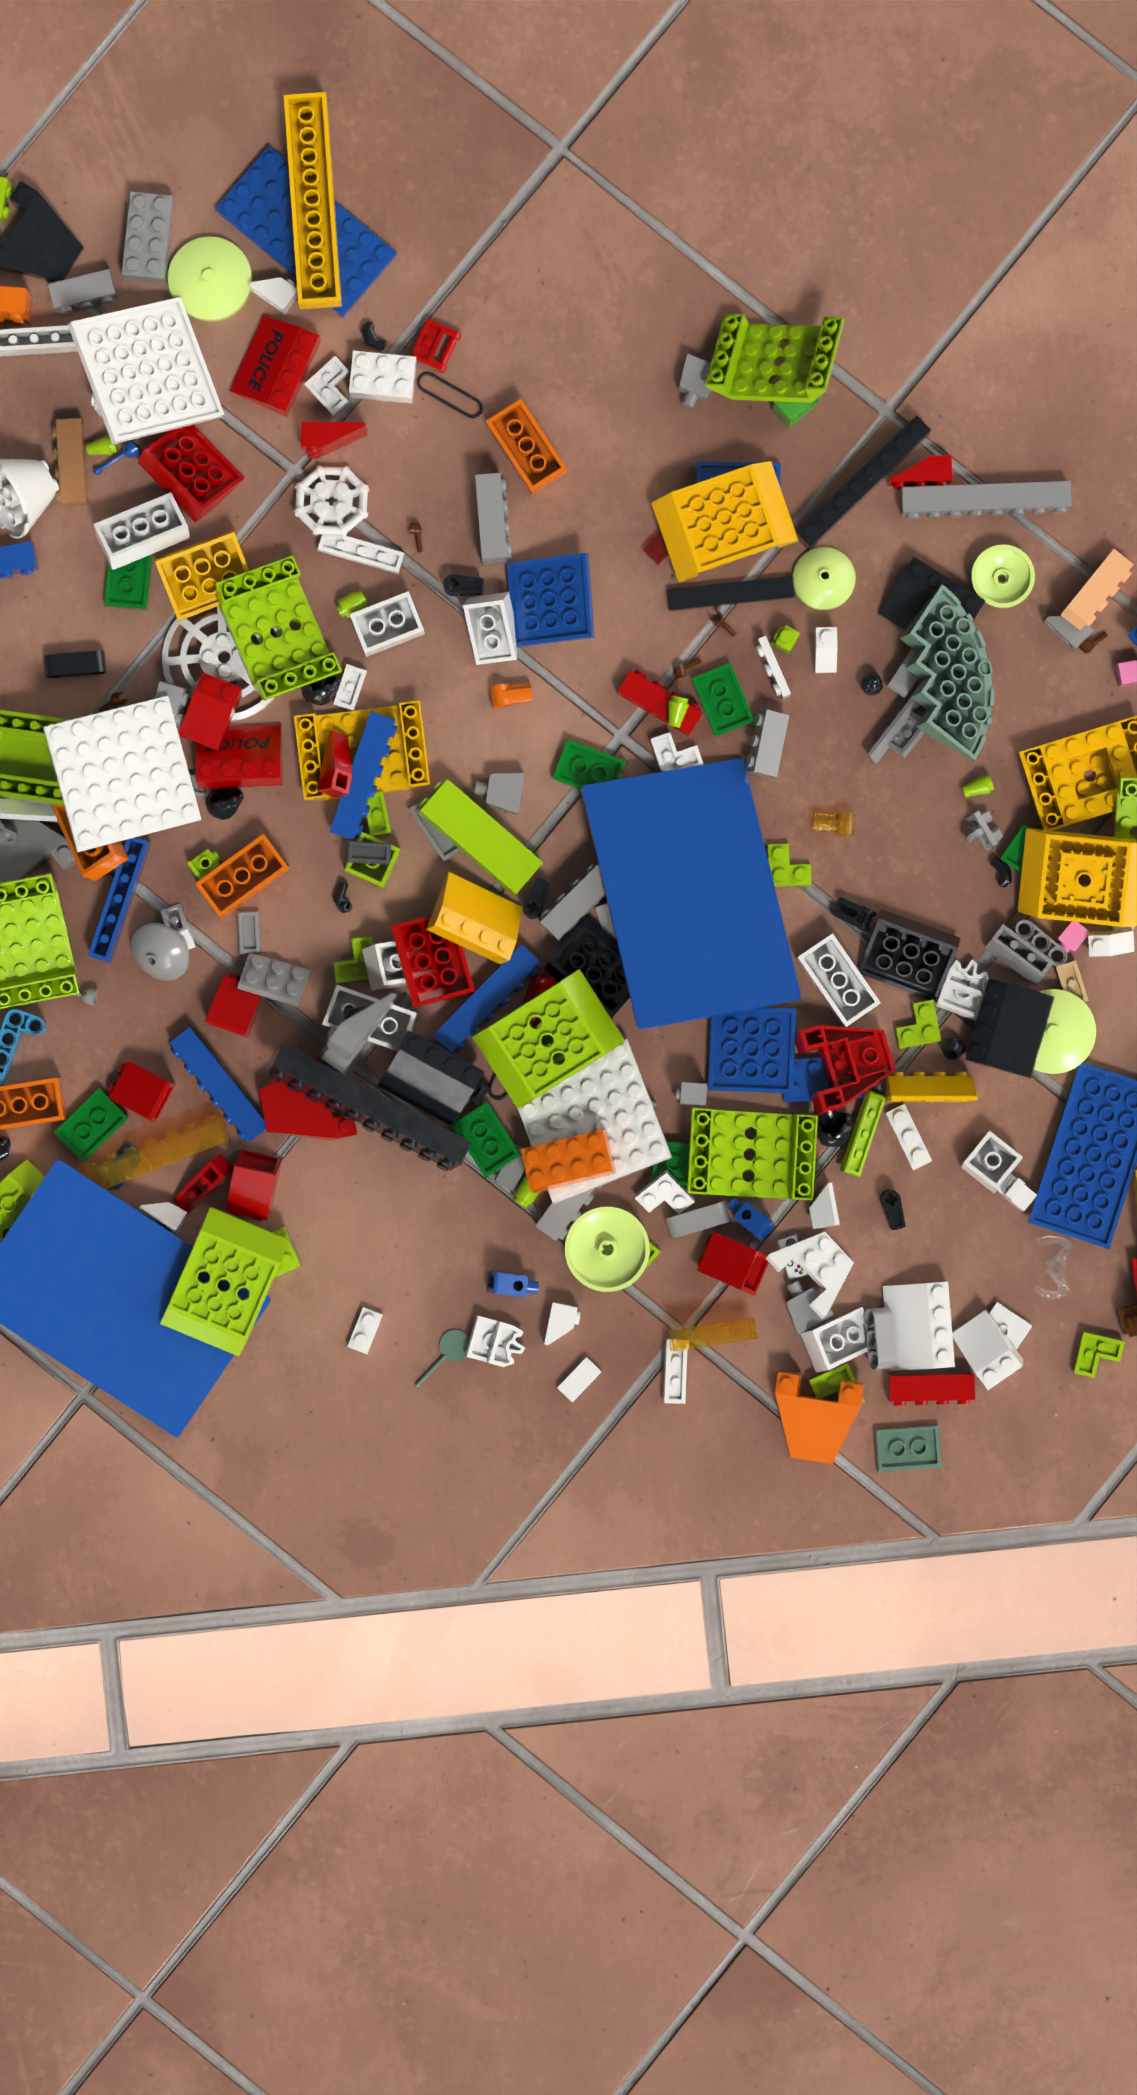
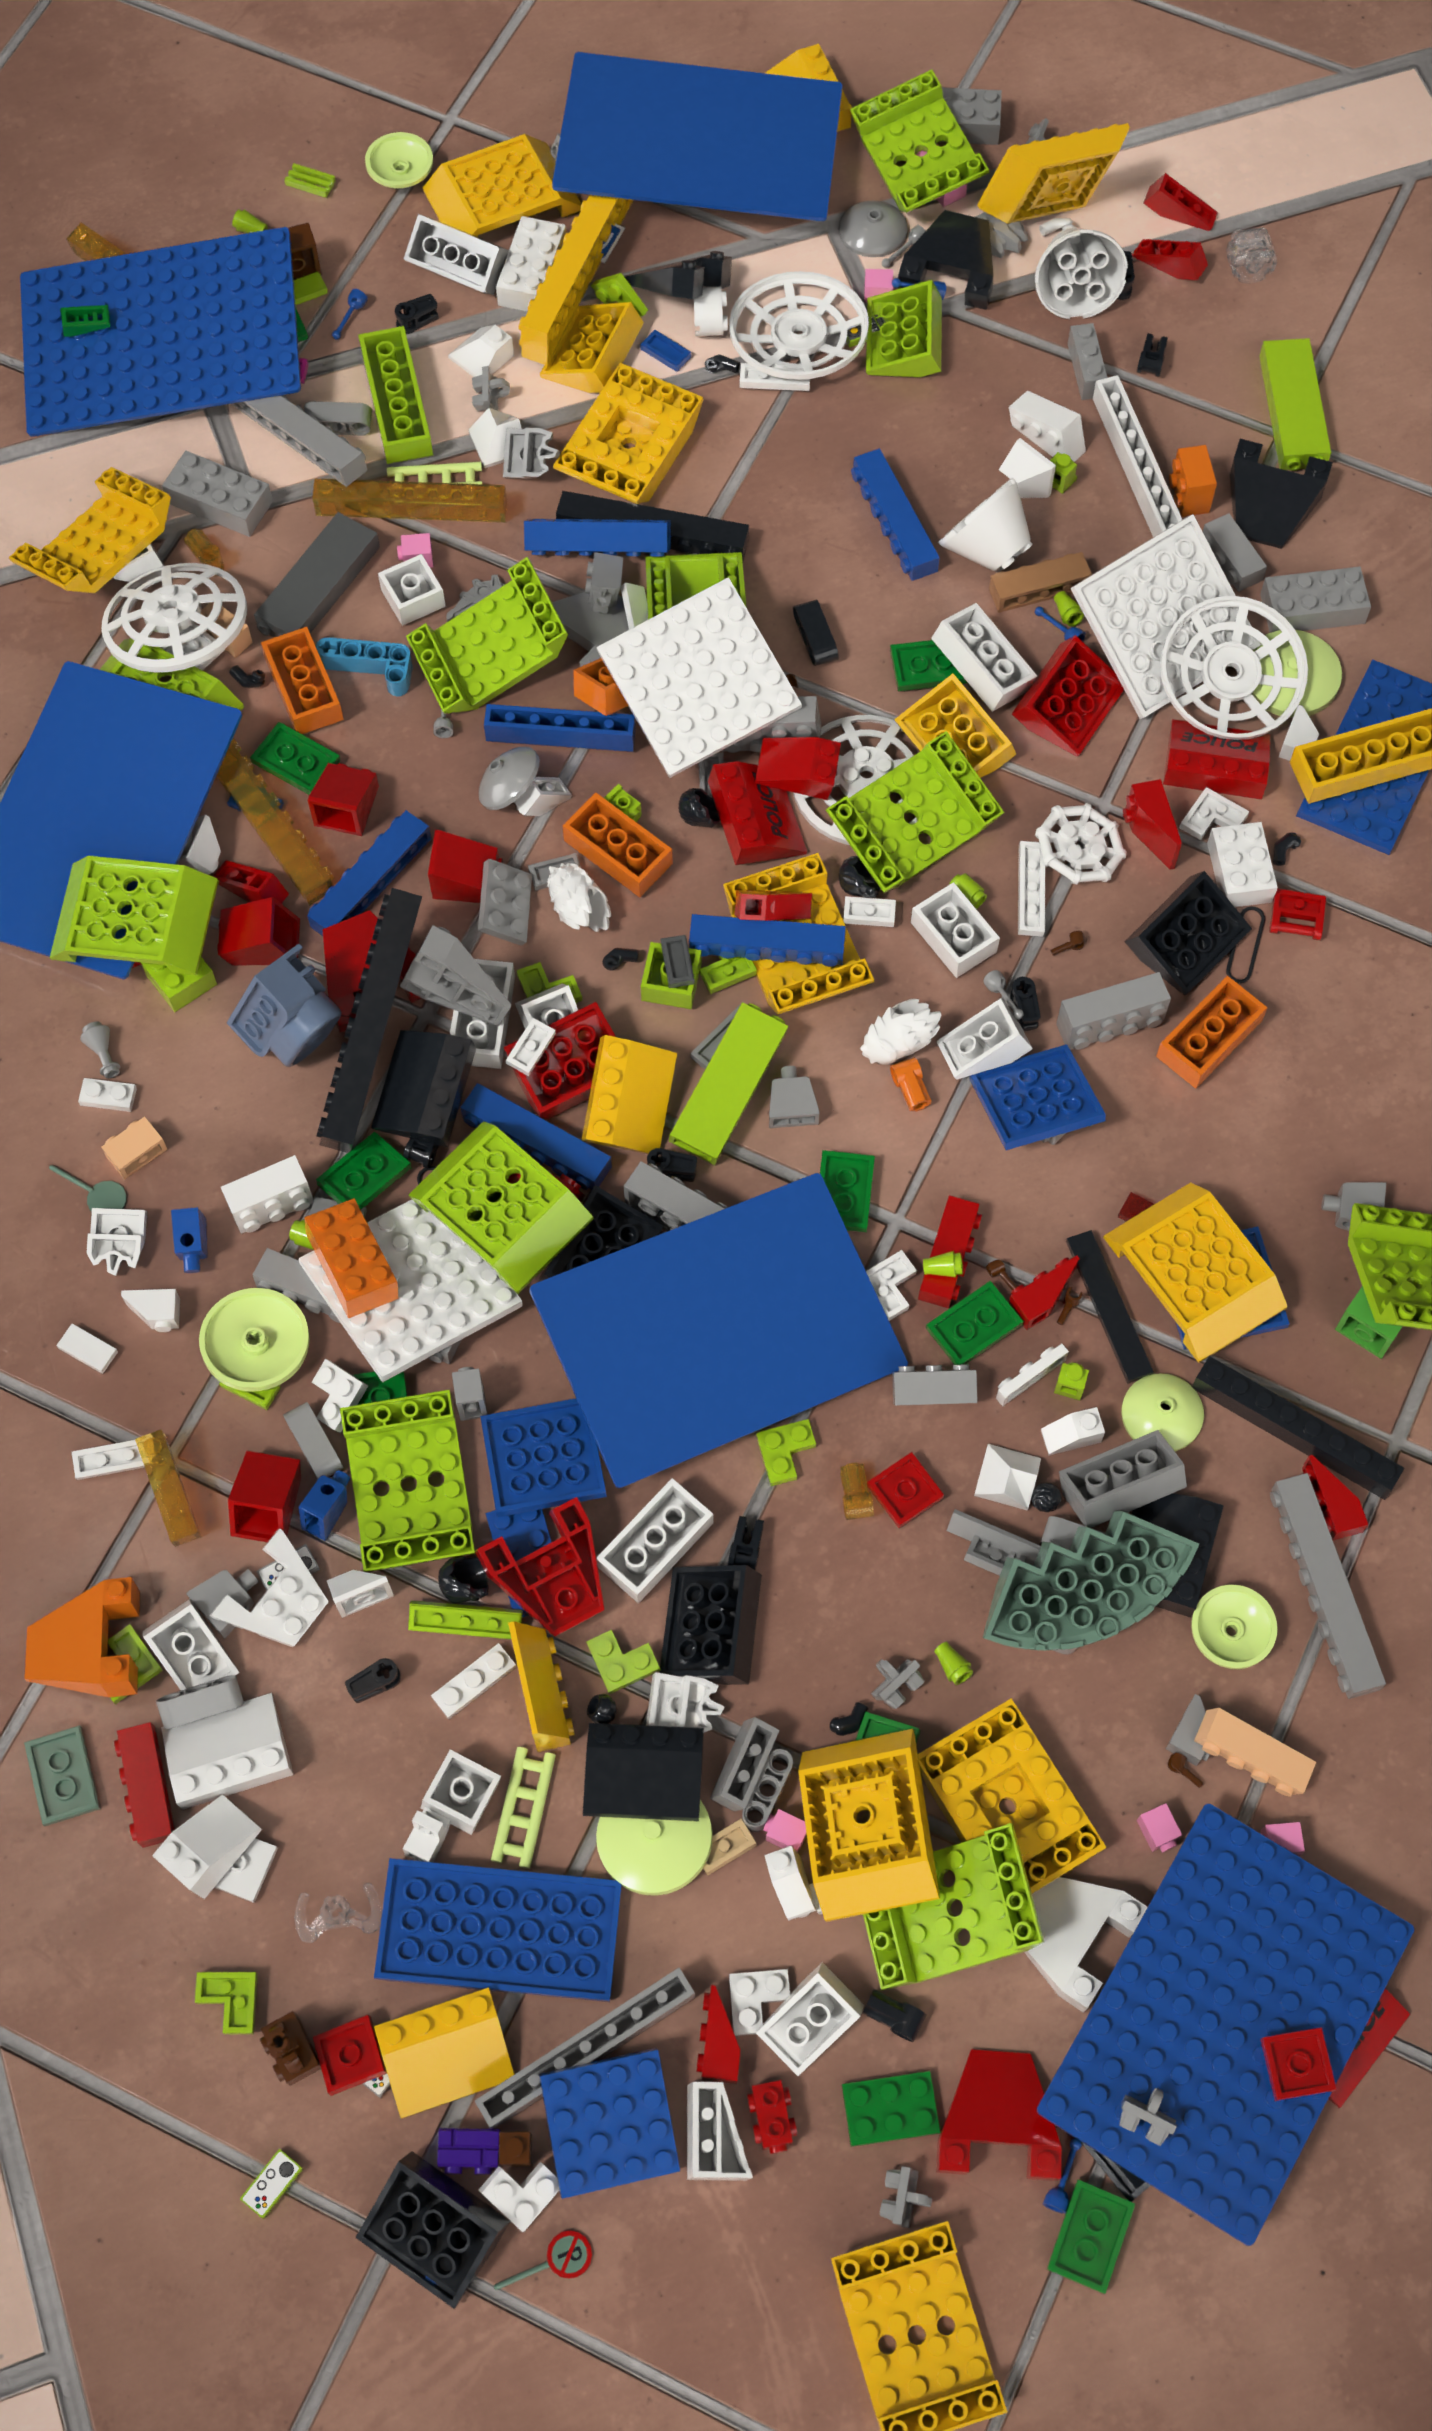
camera: 75 degrees right, 20 degrees down
(210, 317) = (1242, 659): none -> white dish
(286, 920) = (578, 898): none -> white head
(316, 1330) = (97, 1039): none -> light grey piece
(341, 1173) = (285, 1011): none -> sand blue brick
(419, 1316) = (134, 1147): none -> light nougat brick
(421, 985) = (530, 1046): none -> white plate
(432, 438) = (1189, 933): none -> black slope
(439, 603) = (996, 983): none -> light grey hinge
(468, 691) = (900, 1032): none -> white head
(491, 1217) = (268, 1195): none -> white brick
(713, 642) = (1039, 1298): none -> red slope
(840, 786) = (905, 1490): none -> red plate
(846, 707) = (1007, 1477): none -> white slope
(875, 624) = (1123, 1479): none -> light grey brick
(1014, 1133) = (509, 1819): none -> yellowish green bar

